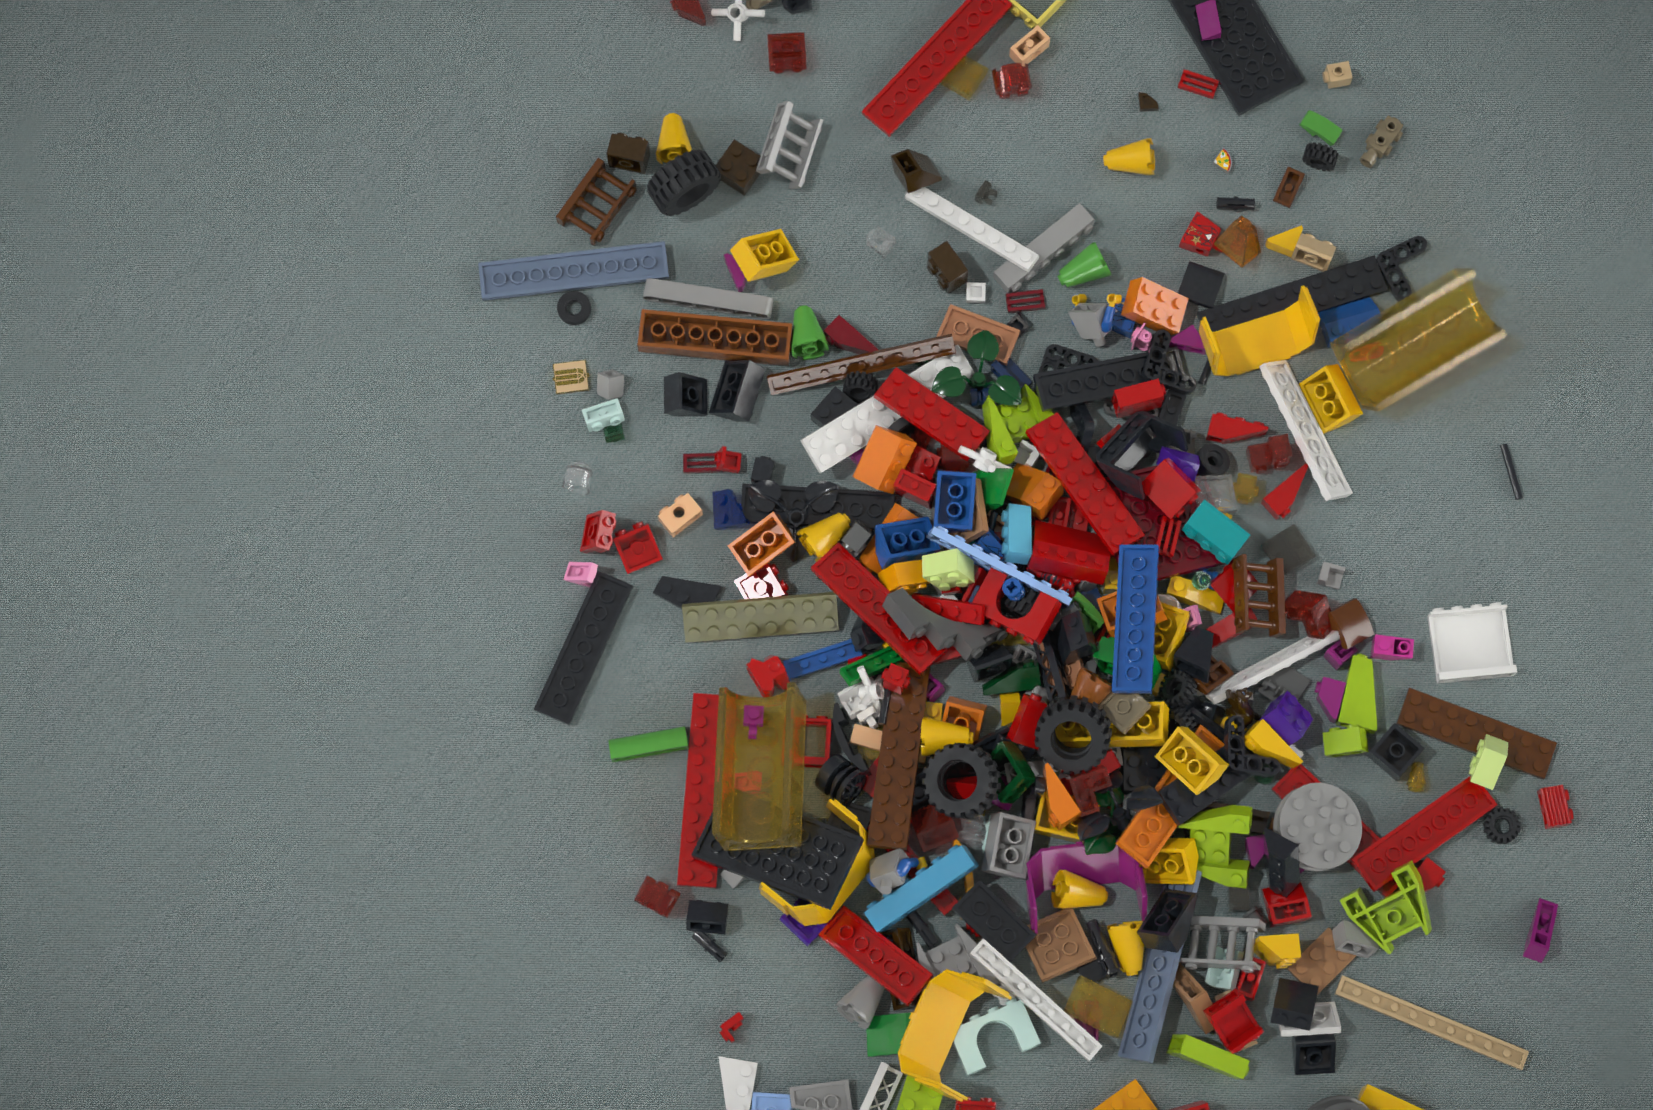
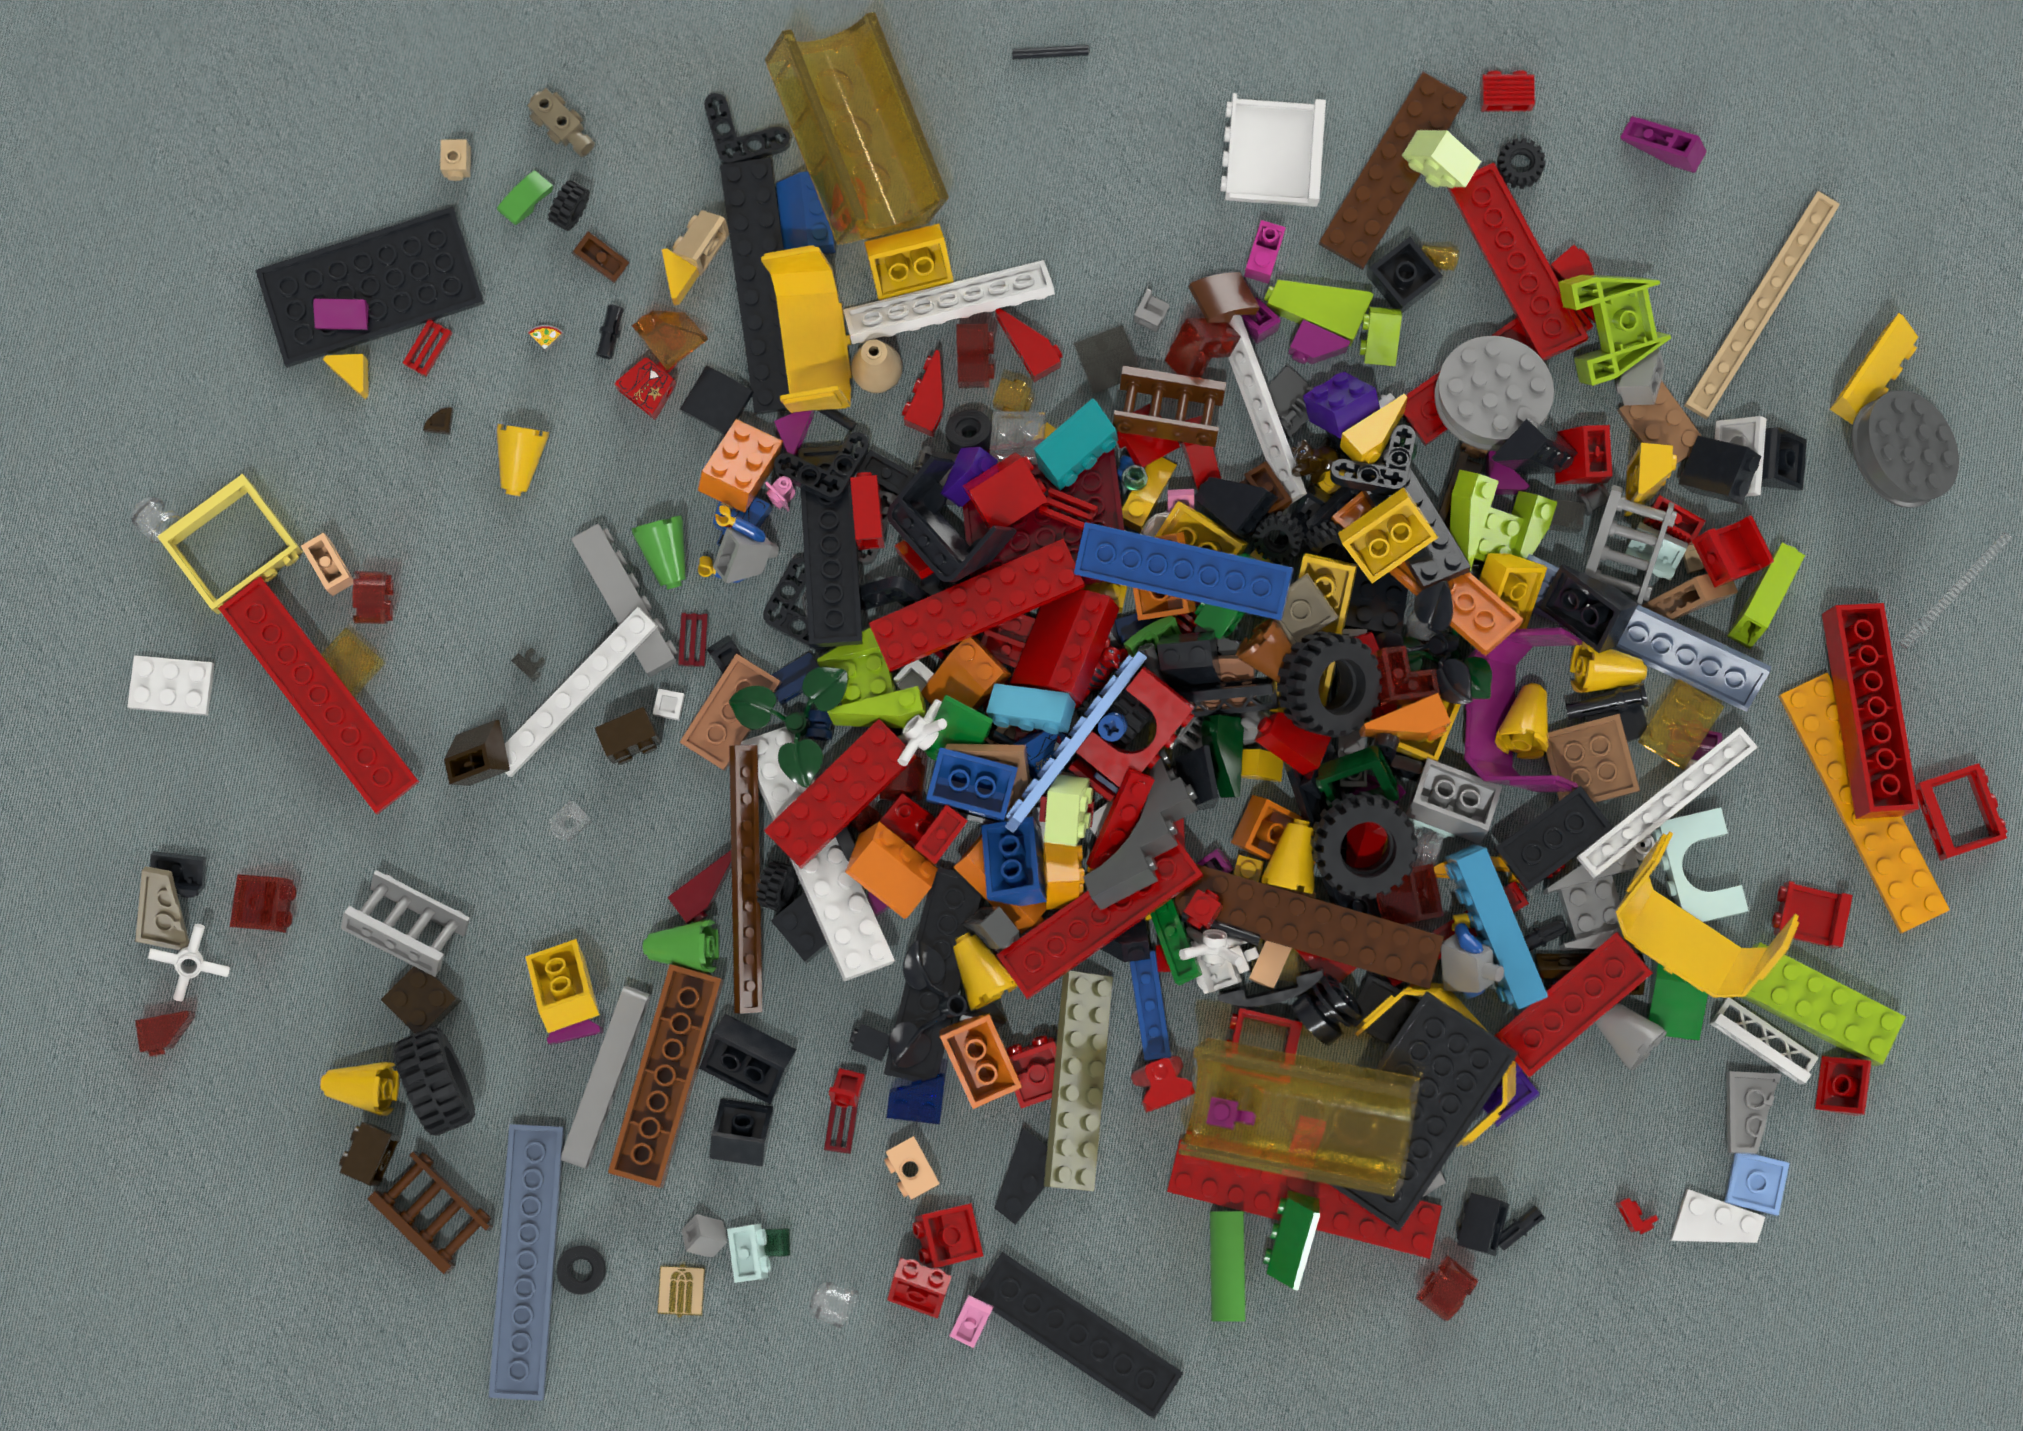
camera: 80 degrees left, 5 degrees up
(674, 782) = (1292, 1238): none -> green slope
(1170, 37) = (352, 369): none -> yellow slope
(1249, 390) = (876, 366): none -> tan cone

